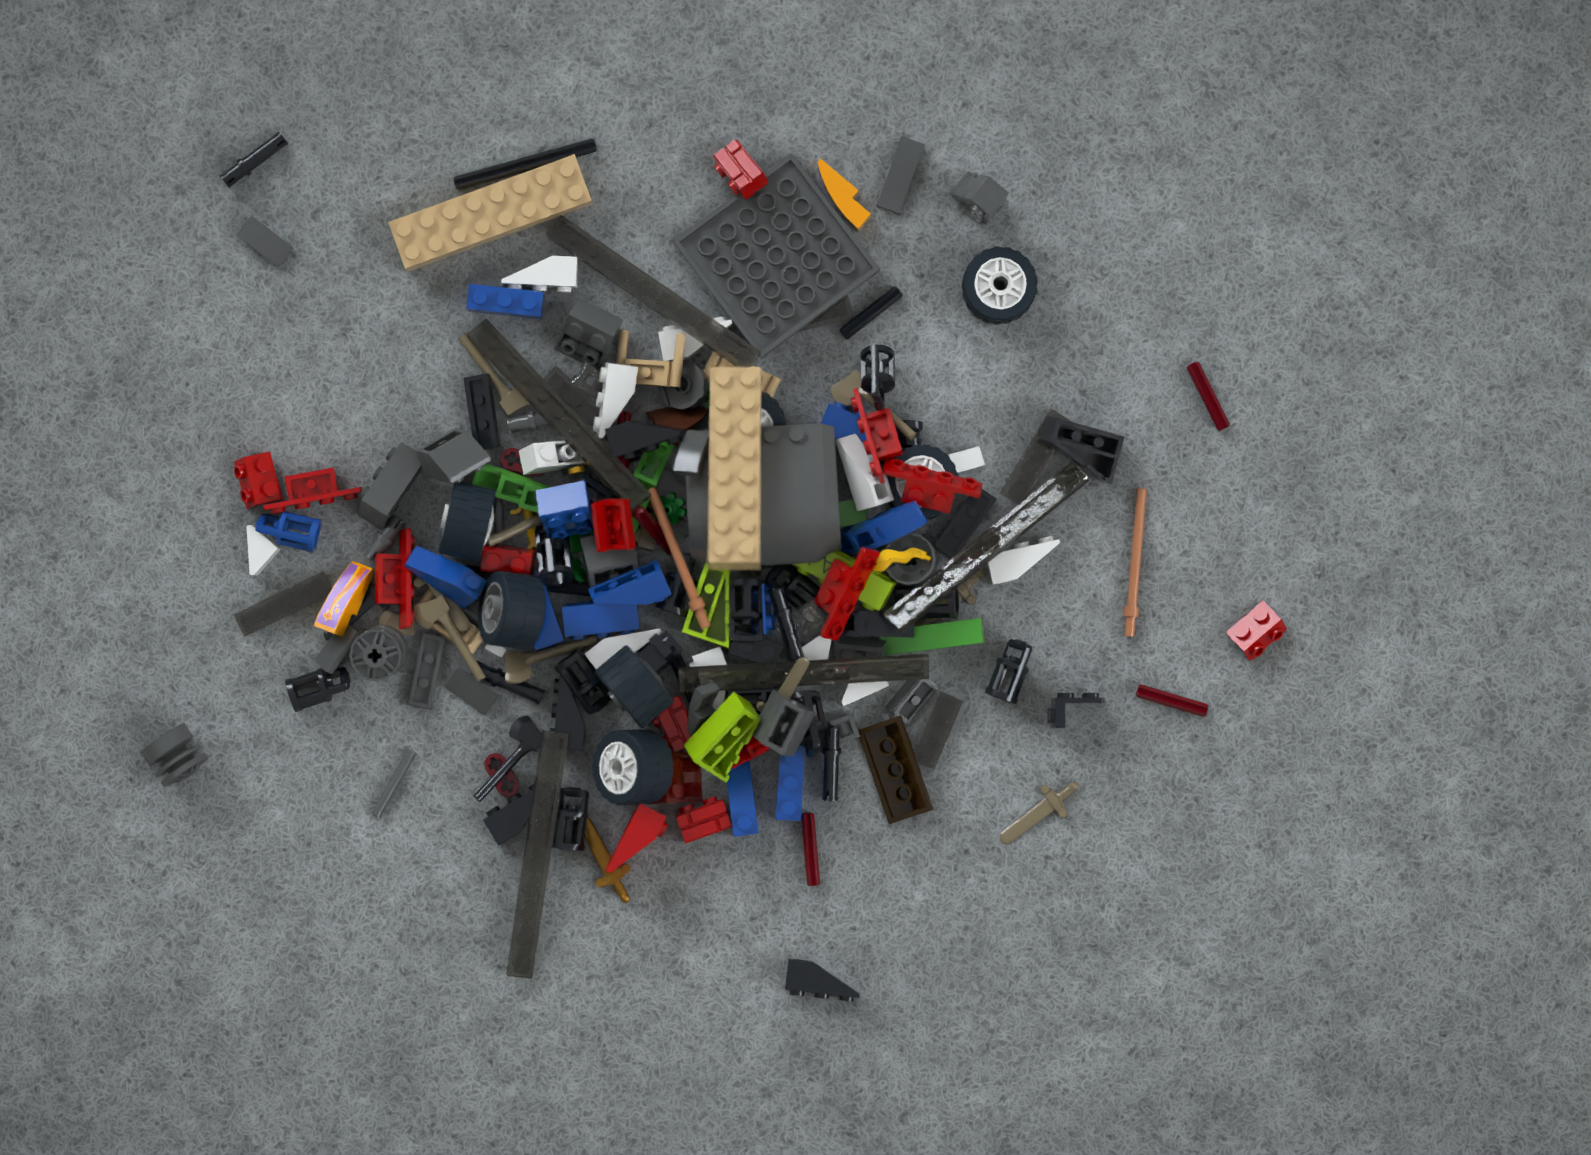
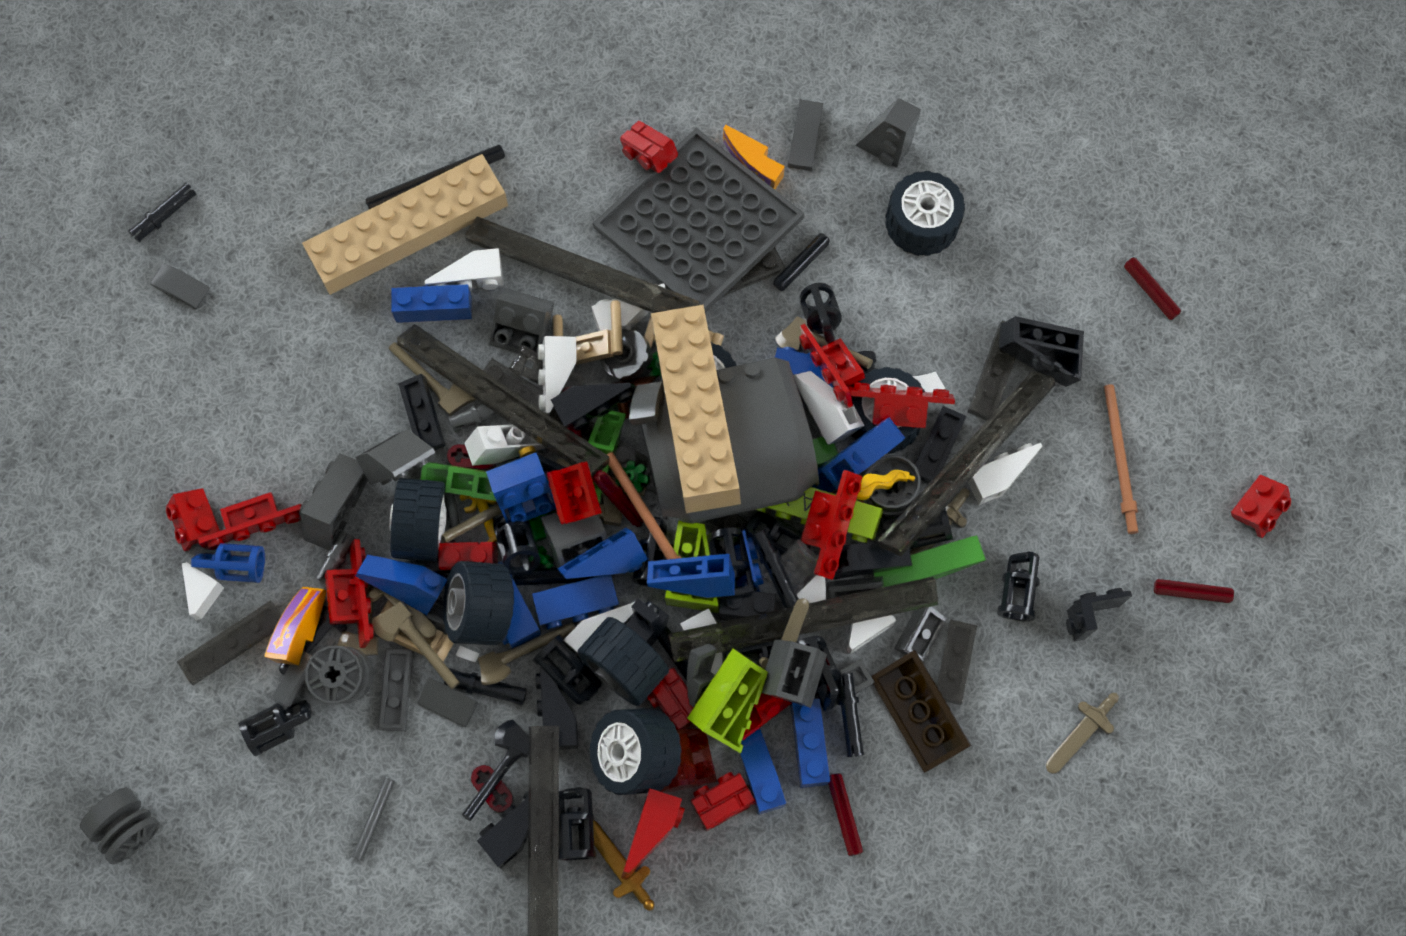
camera: 10 degrees left, 15 degrees down
(709, 621) = (695, 576): none -> blue slope

